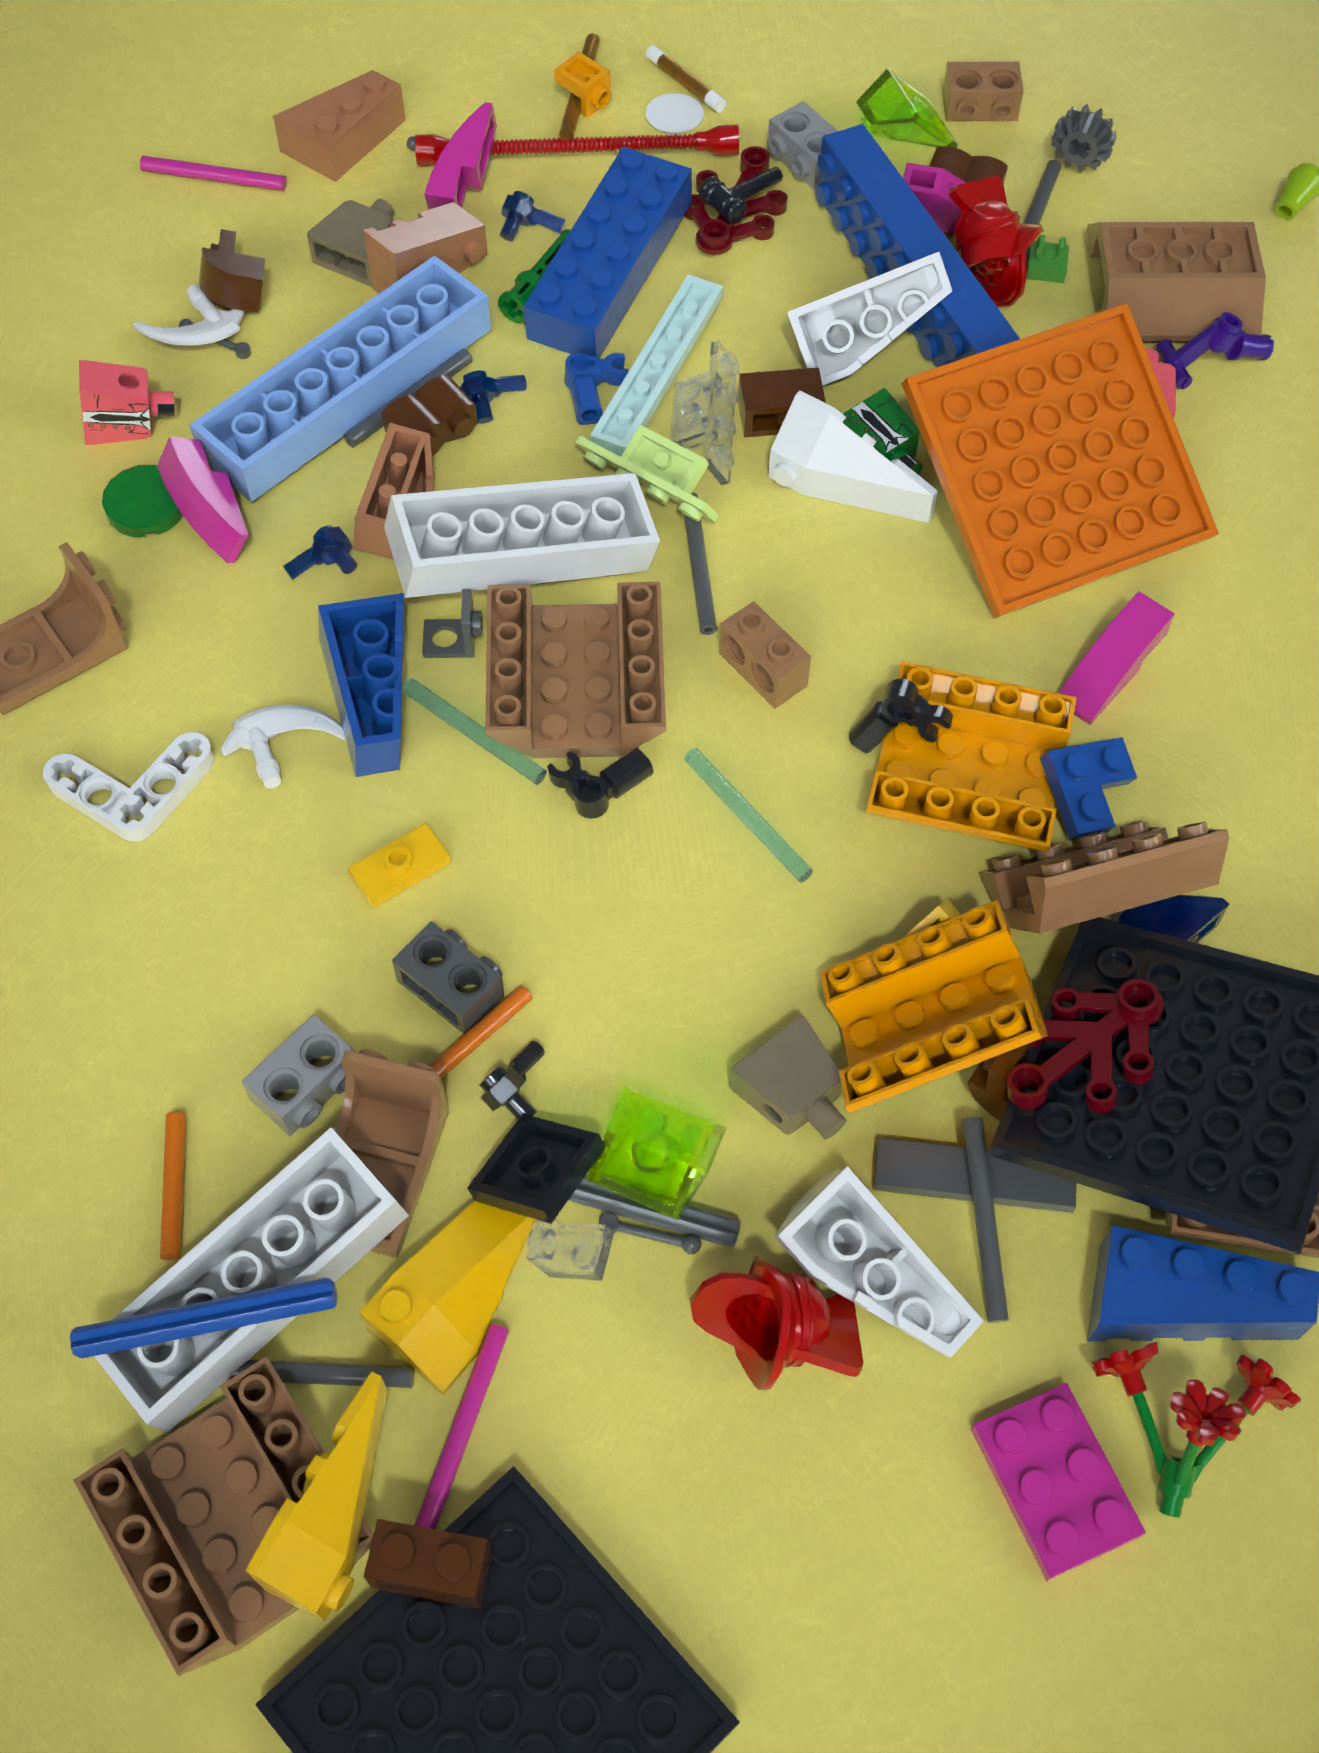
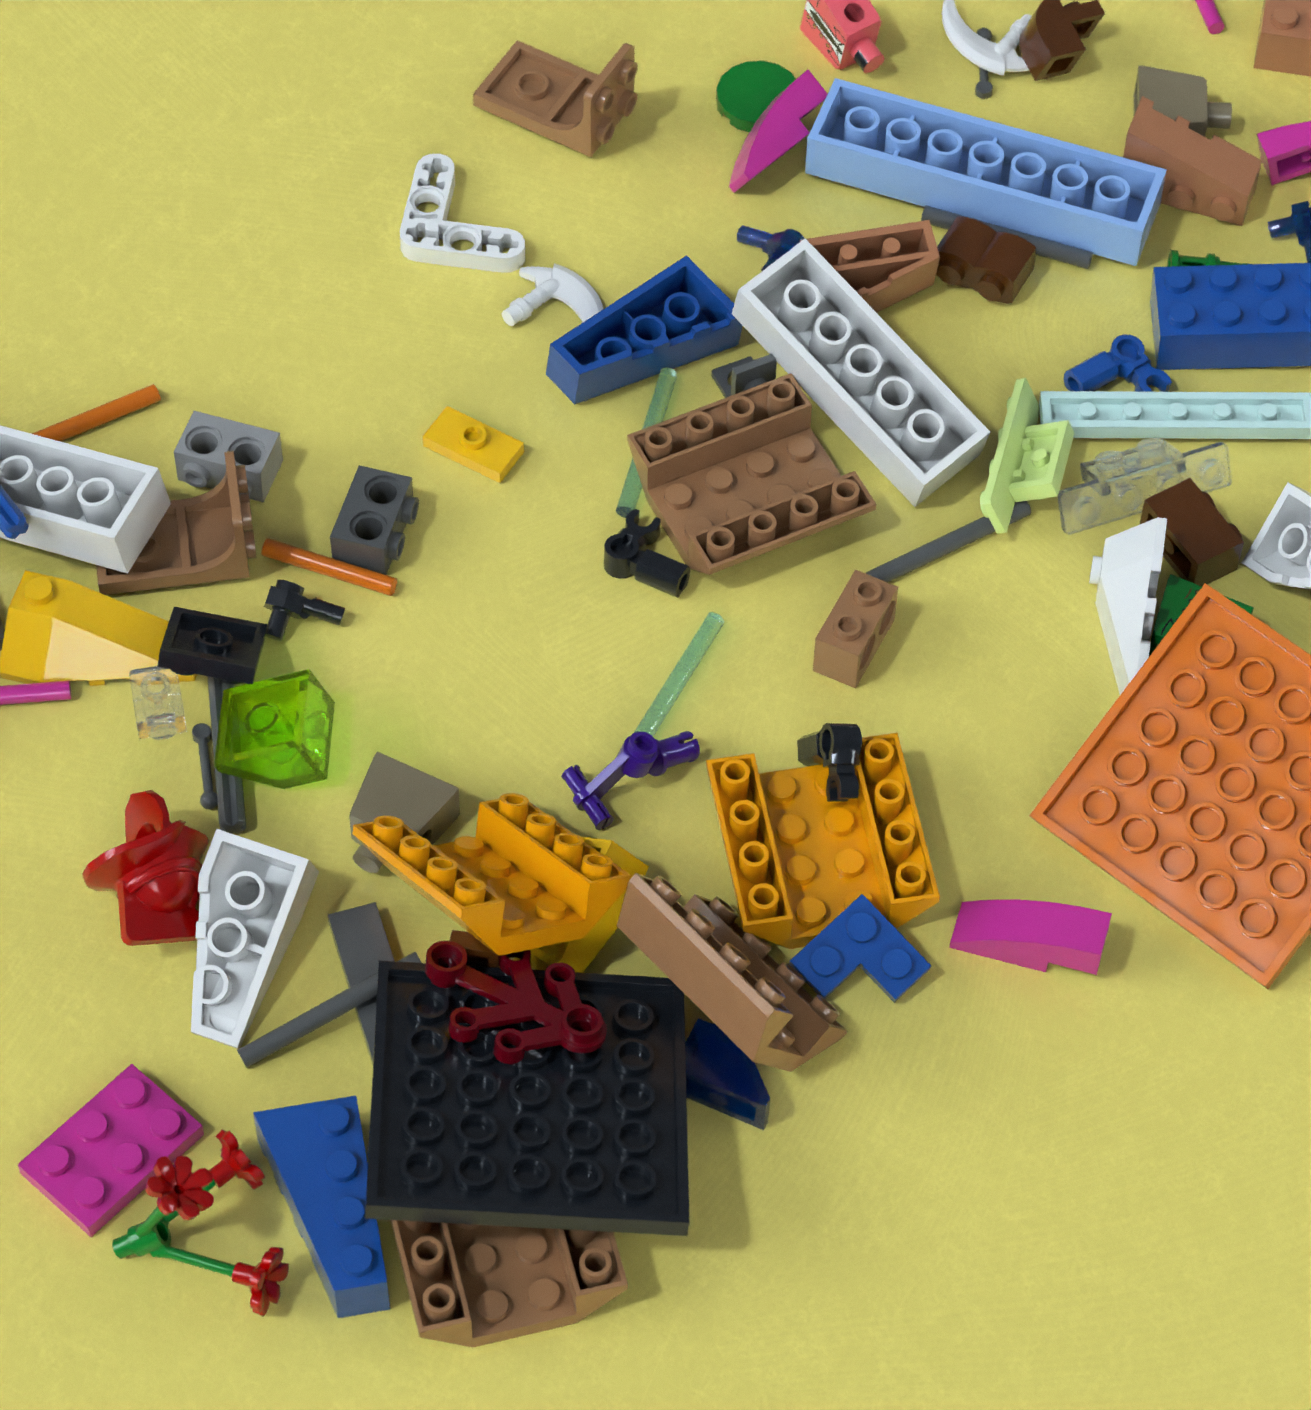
camera: 65 degrees right, 5 degrees down
(483, 389) = (1046, 284): clear blue piece -> none
(832, 862) = (636, 759): none -> dark purple pin

